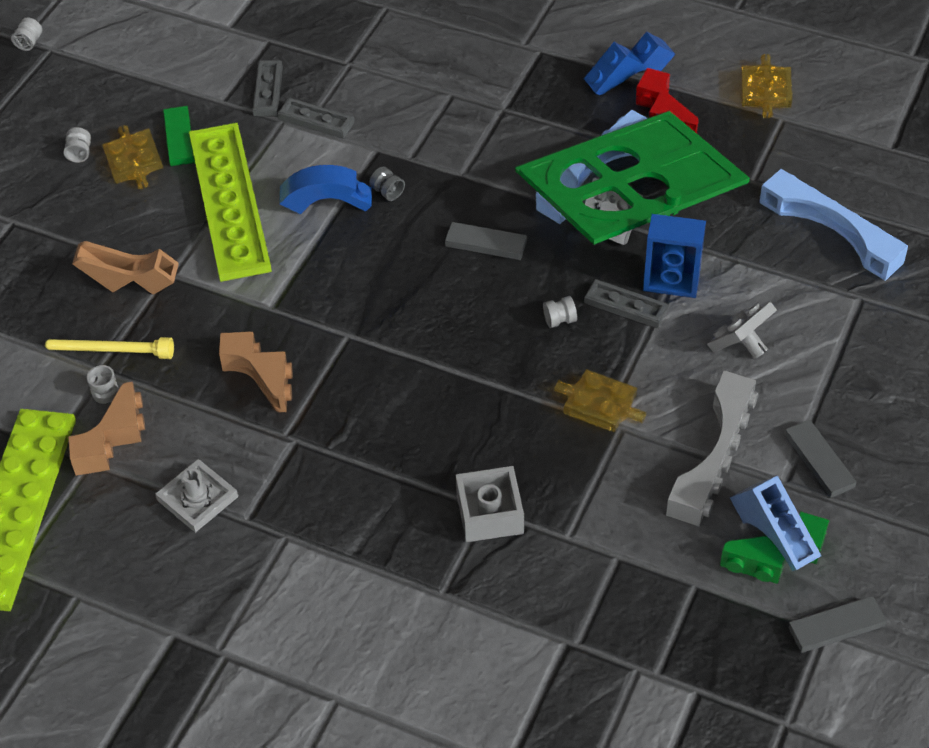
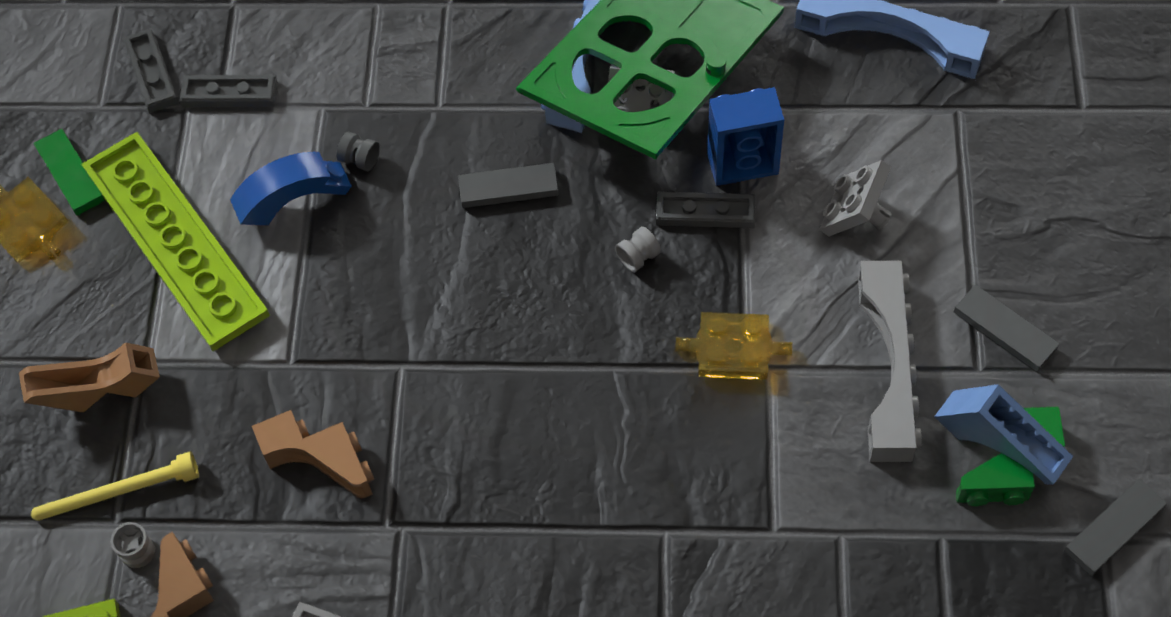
camera: 20 degrees left, 10 degrees up
(490, 504) = (674, 529): light grey brick -> none

